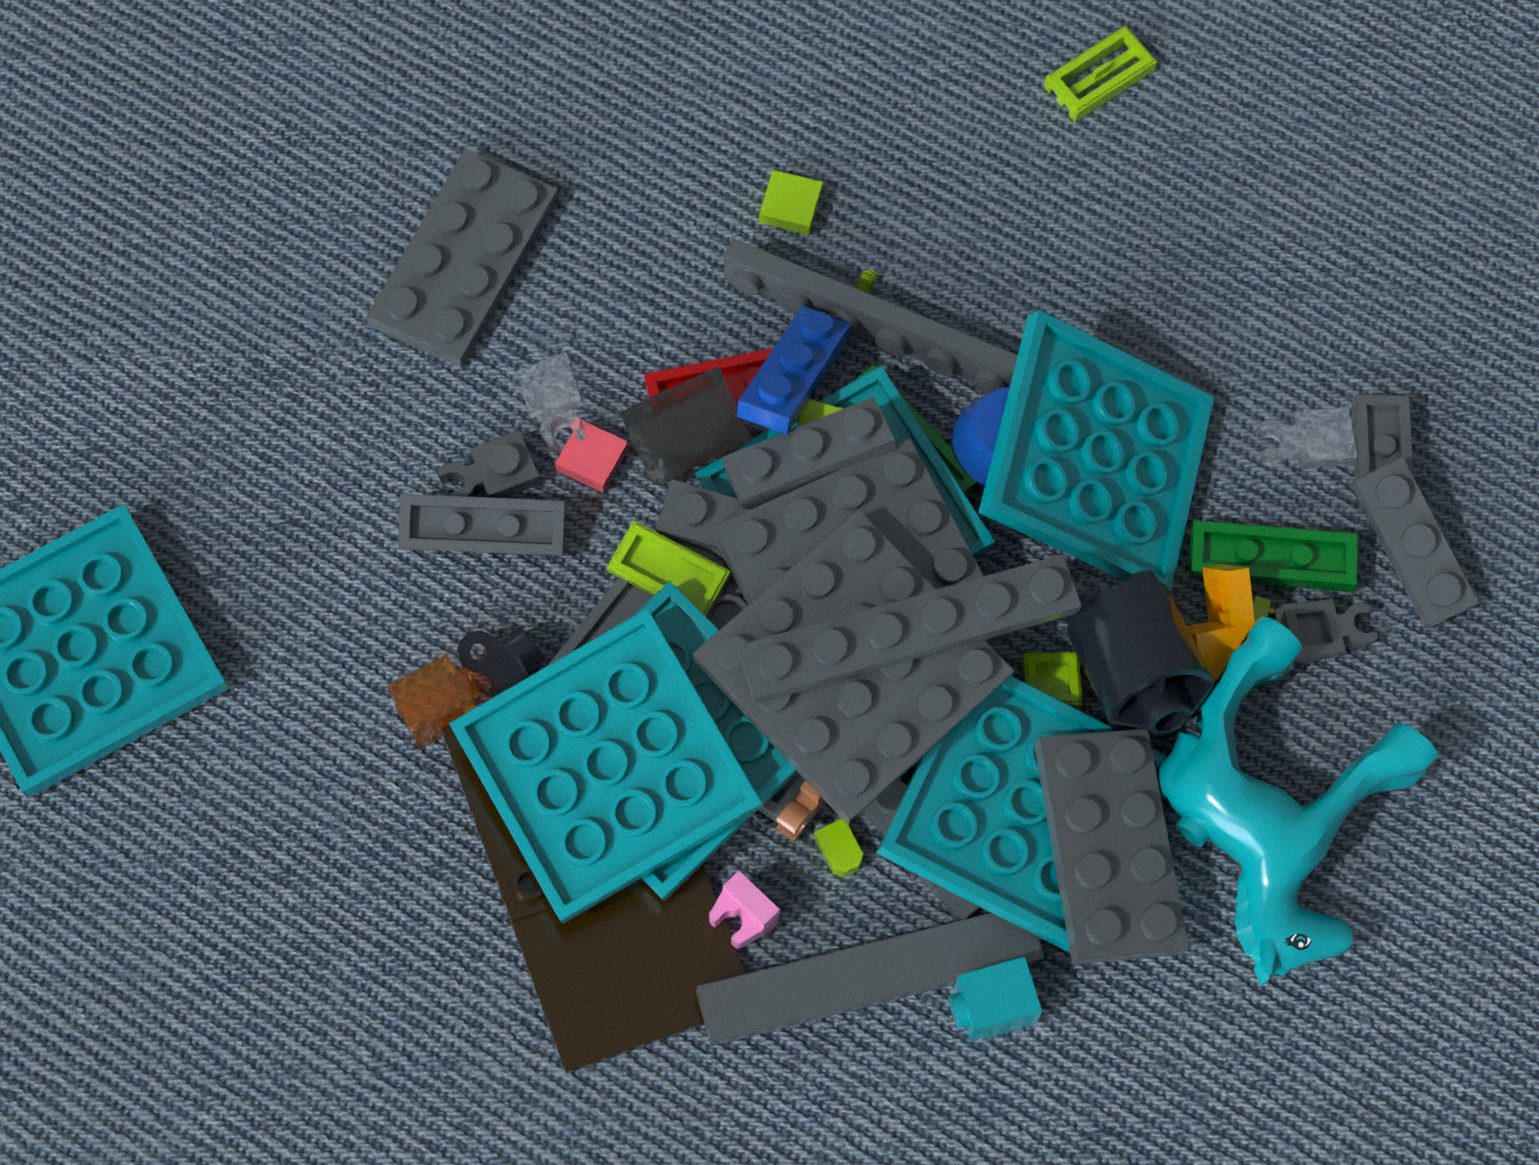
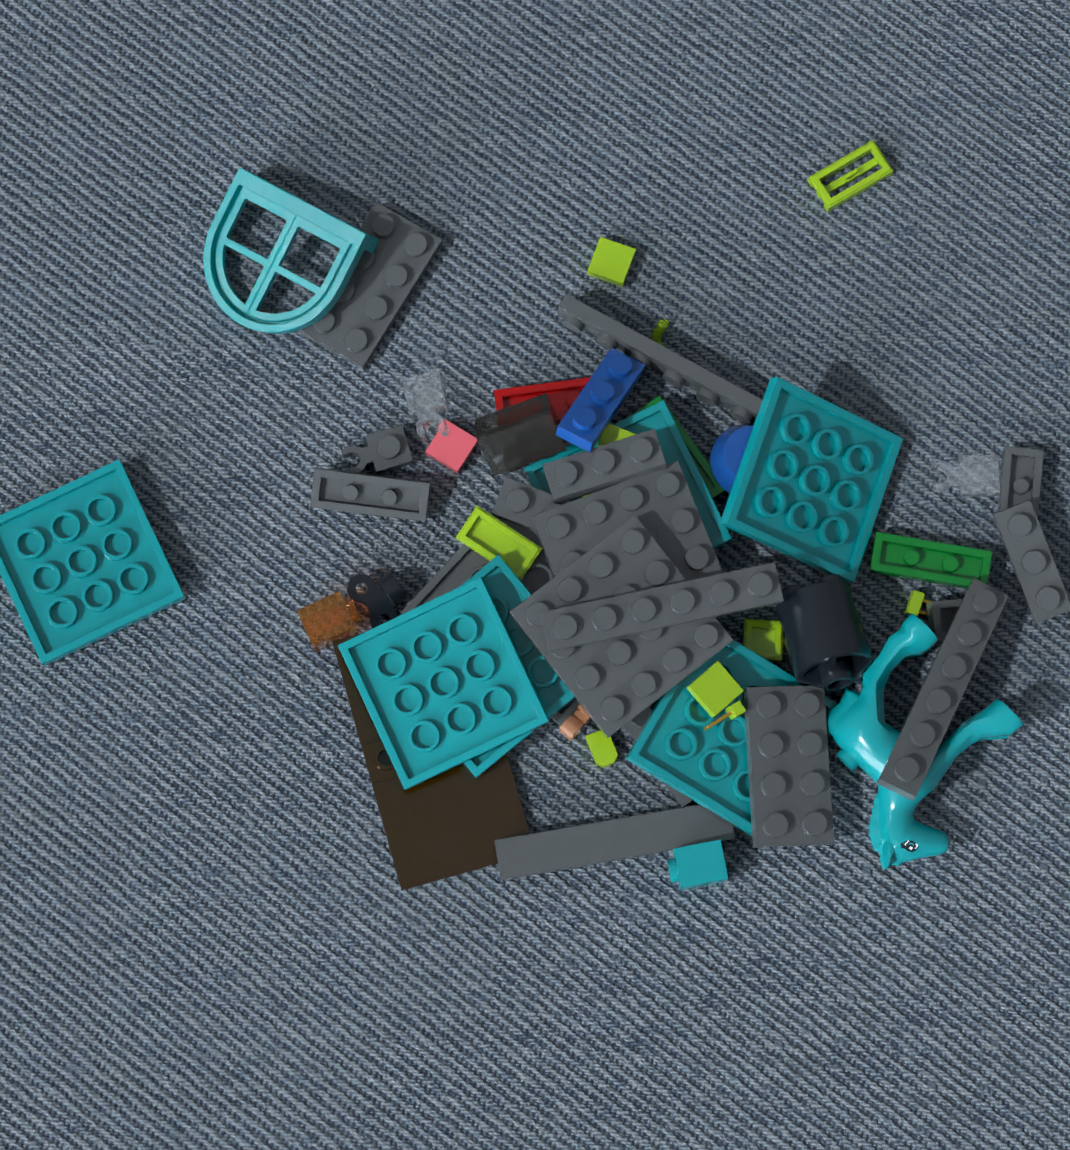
camera: 10 degrees right, 10 degrees up
(357, 163) = (298, 215): none -> window
(755, 909) = (540, 790): bright pink tile -> none
(994, 743) = (715, 689): none -> lime tile
(1022, 773) = (732, 711): none -> lime piece
(1229, 615) = (893, 608): light orange slope -> none
(1316, 721) = (942, 689): none -> dark grey plate

